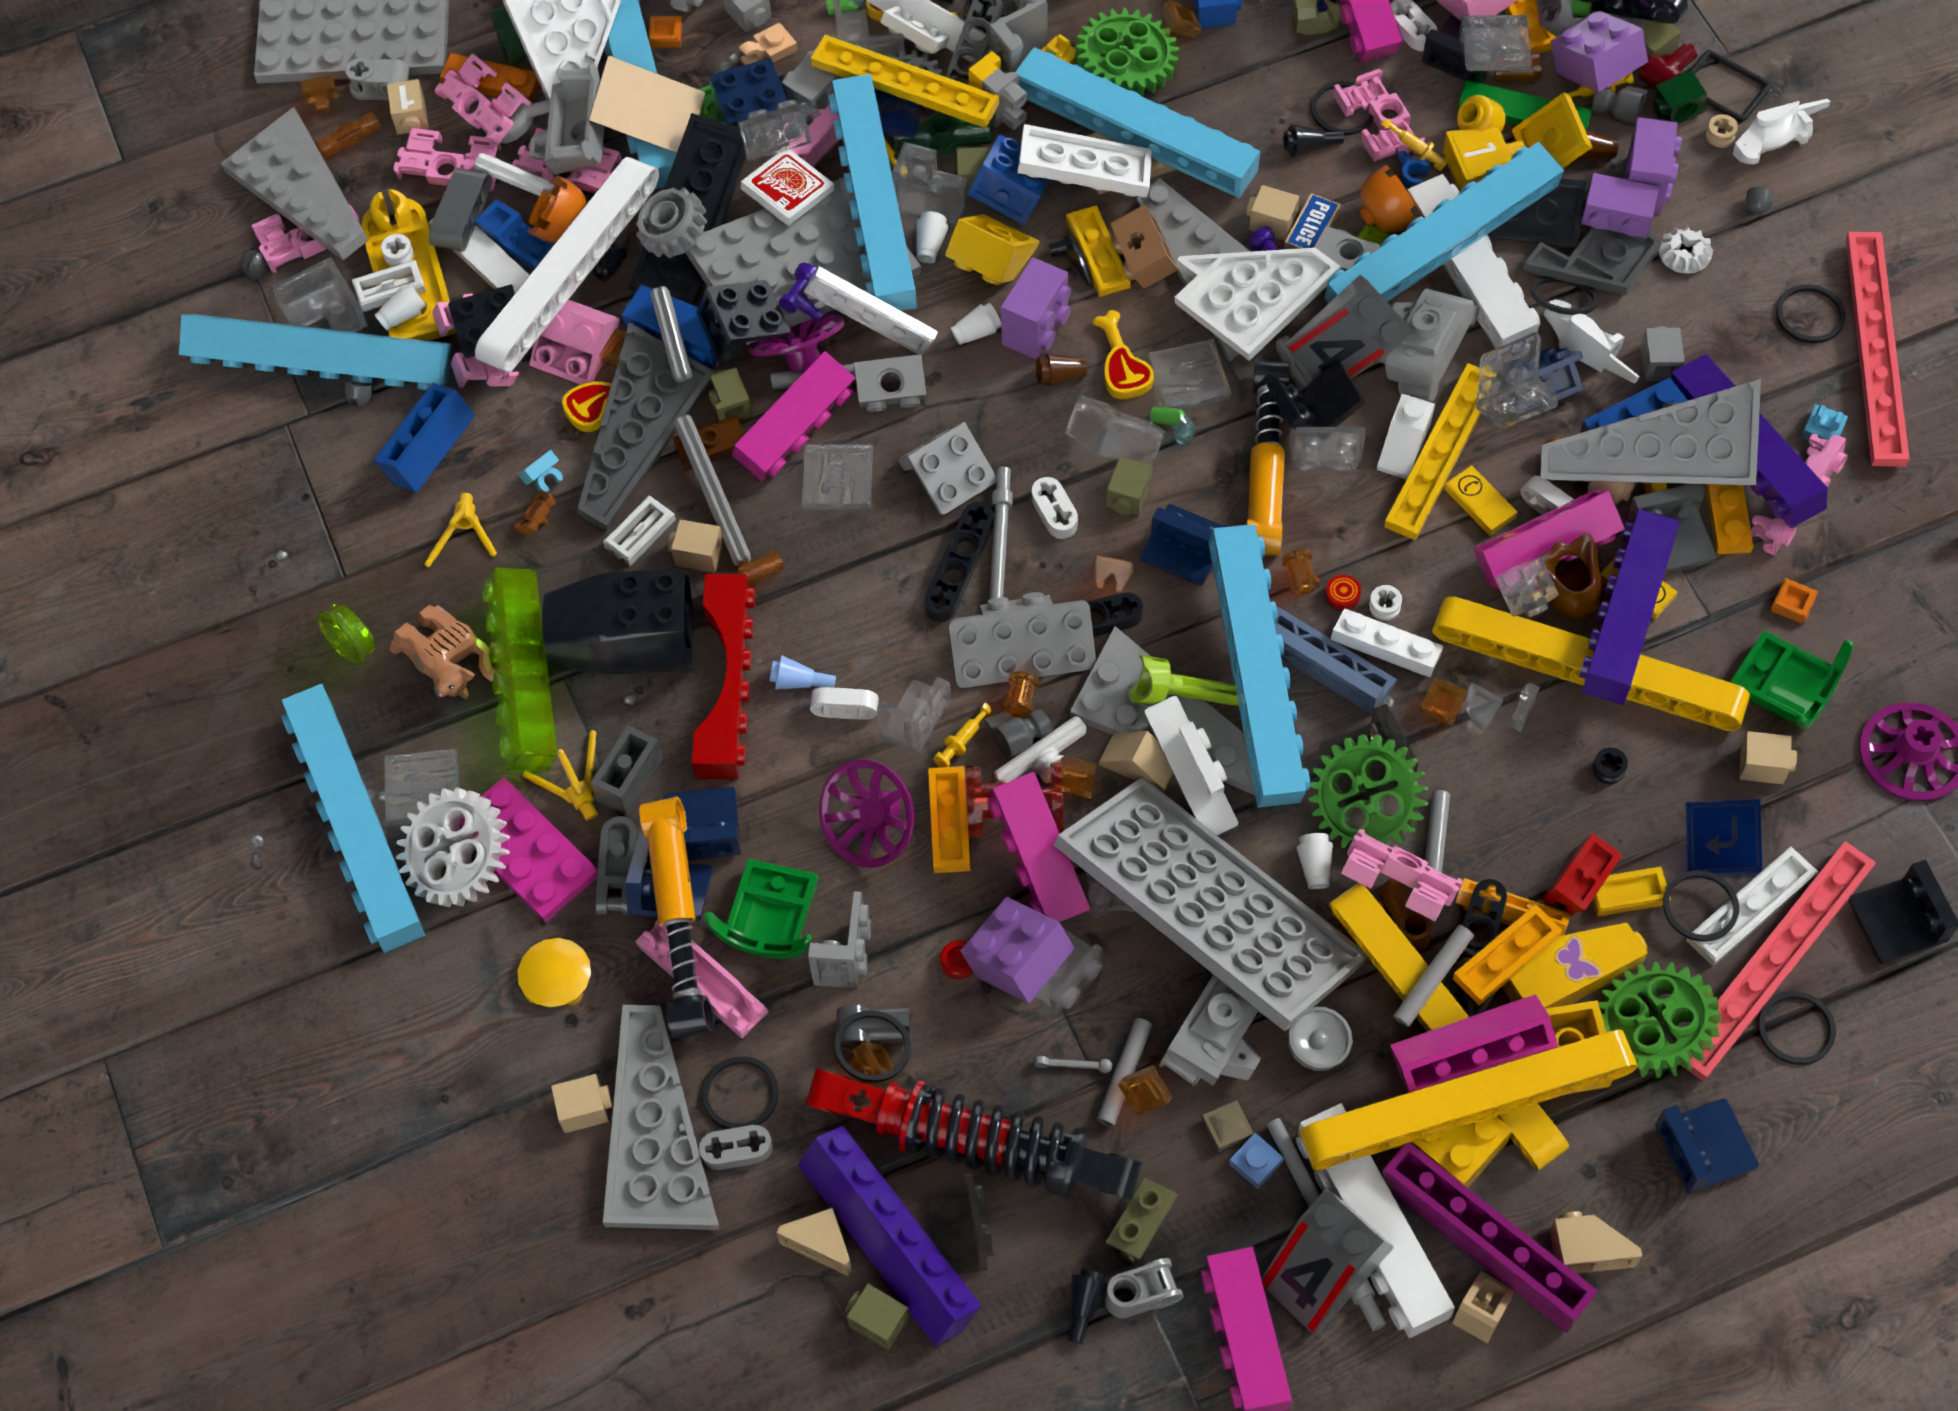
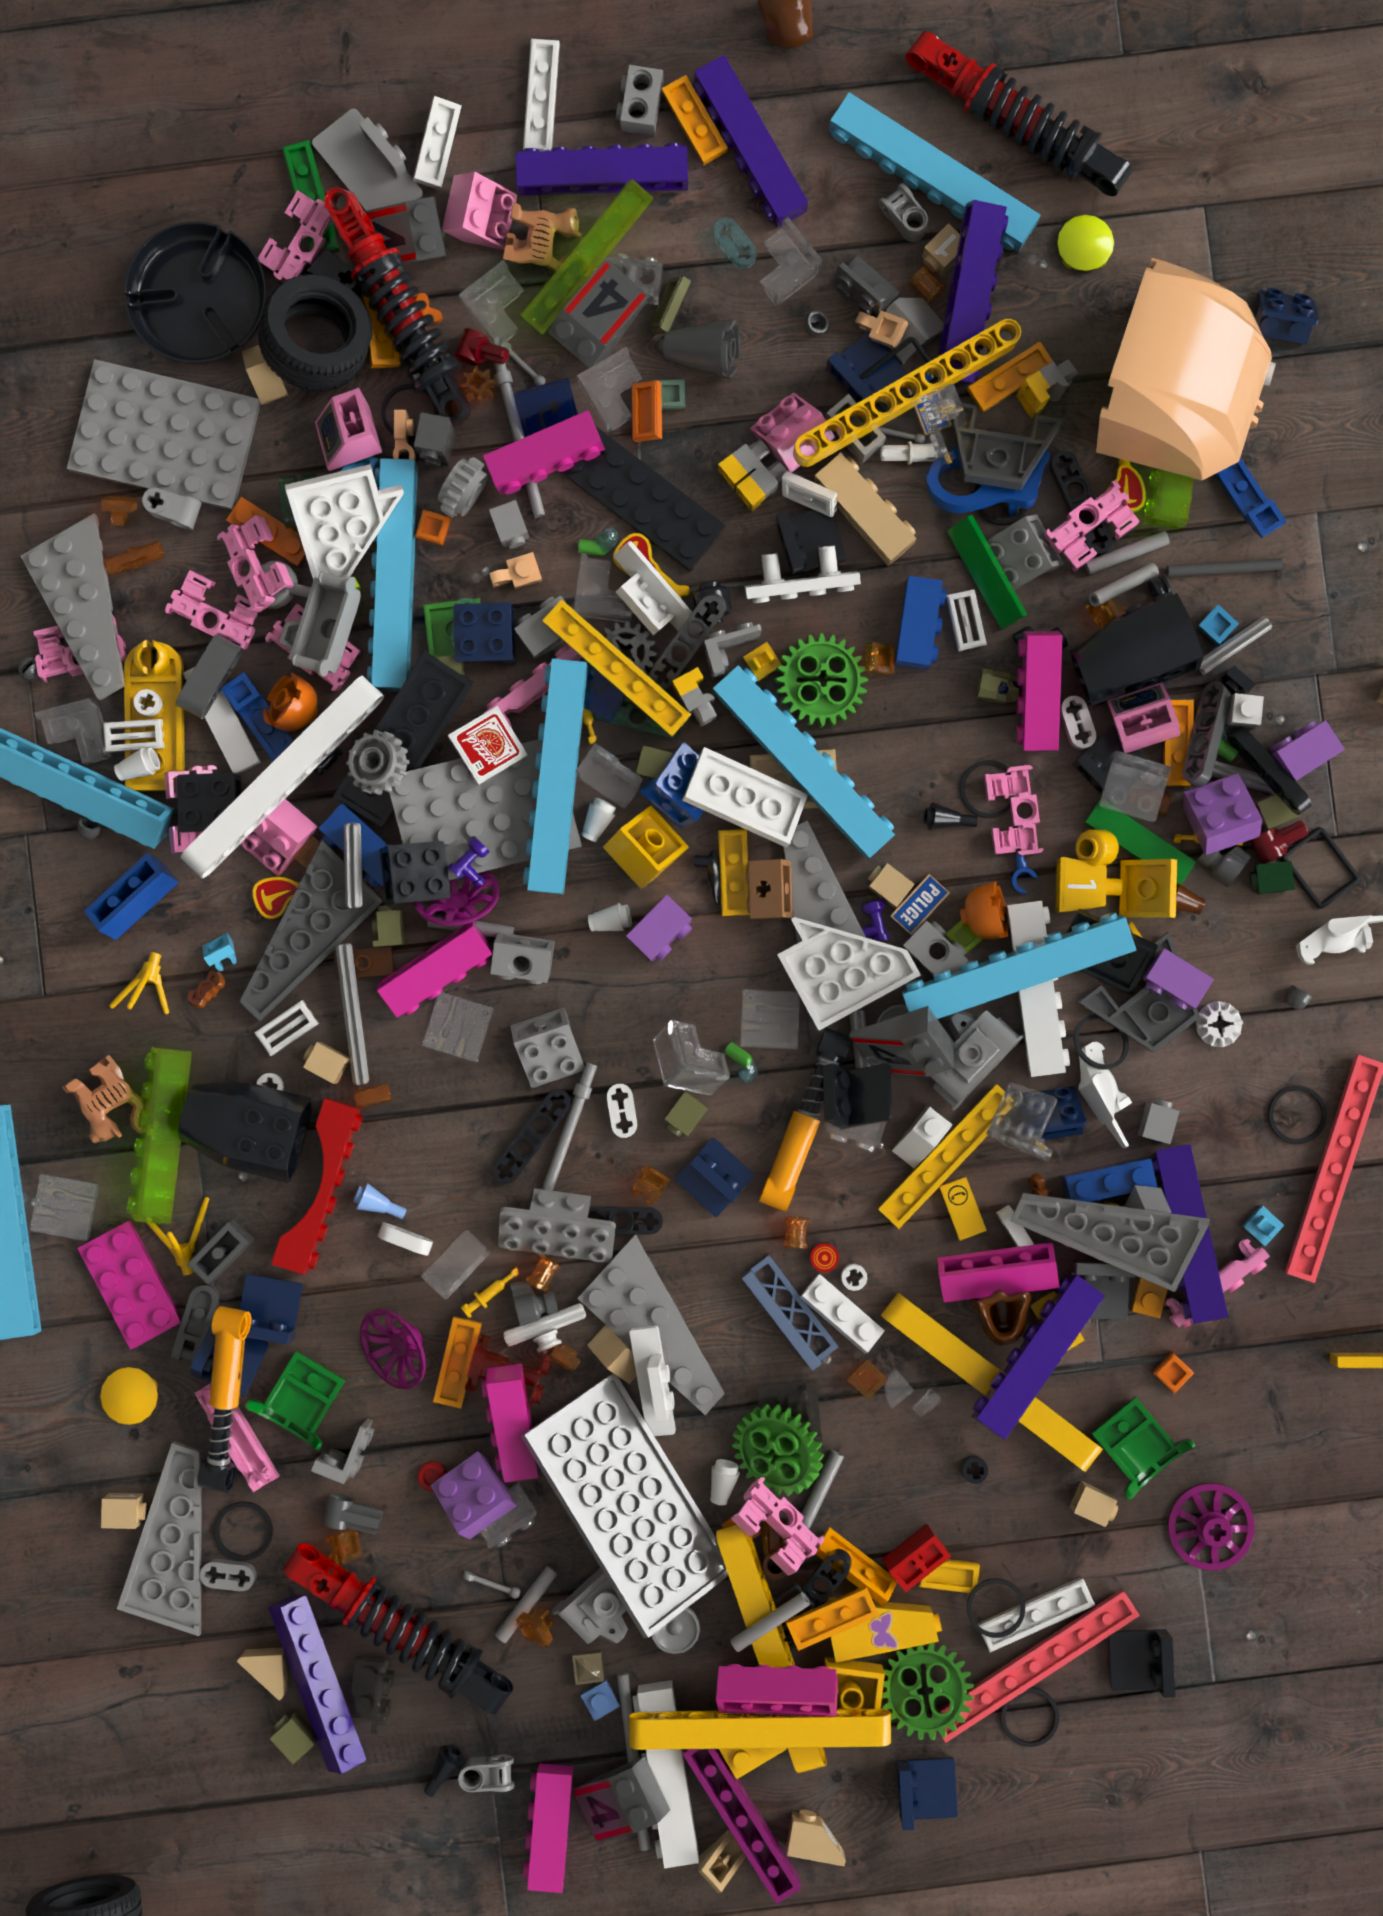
camera: 20 degrees right, 25 degrees up
(346, 633) = (33, 1062): clear neon green hat -> none
(407, 106) = (190, 547): tan brick -> none
(462, 875) = (75, 1257): white gear -> none
(512, 174) = (266, 652): white axle -> none
(644, 104) = (390, 622): tan sticker -> none
(777, 130) = (493, 689): clear bracket -> none
(870, 311) = (521, 894): white tile -> none
(872, 1014) = (360, 1562): black piece -> none
(1059, 368) = (665, 983): reddish brown cone -> none
(1123, 373) = (717, 1001): yellow piece -> none
(1141, 1219) = (502, 1725): olive hinge -> none
(1157, 682) = (648, 1307): lime piece -> none
(1257, 666) = (728, 1320): medium azure brick -> none
(1417, 145) = (1039, 863): yellow piece -> none
(1527, 587) = (965, 1322): clear brick -> none
(1653, 157) = (1219, 945): medium lavender brick -> none
(1724, 122) = (1288, 915): tan bush -> none
(1724, 836) = (1035, 1559): clear blue piece -> none

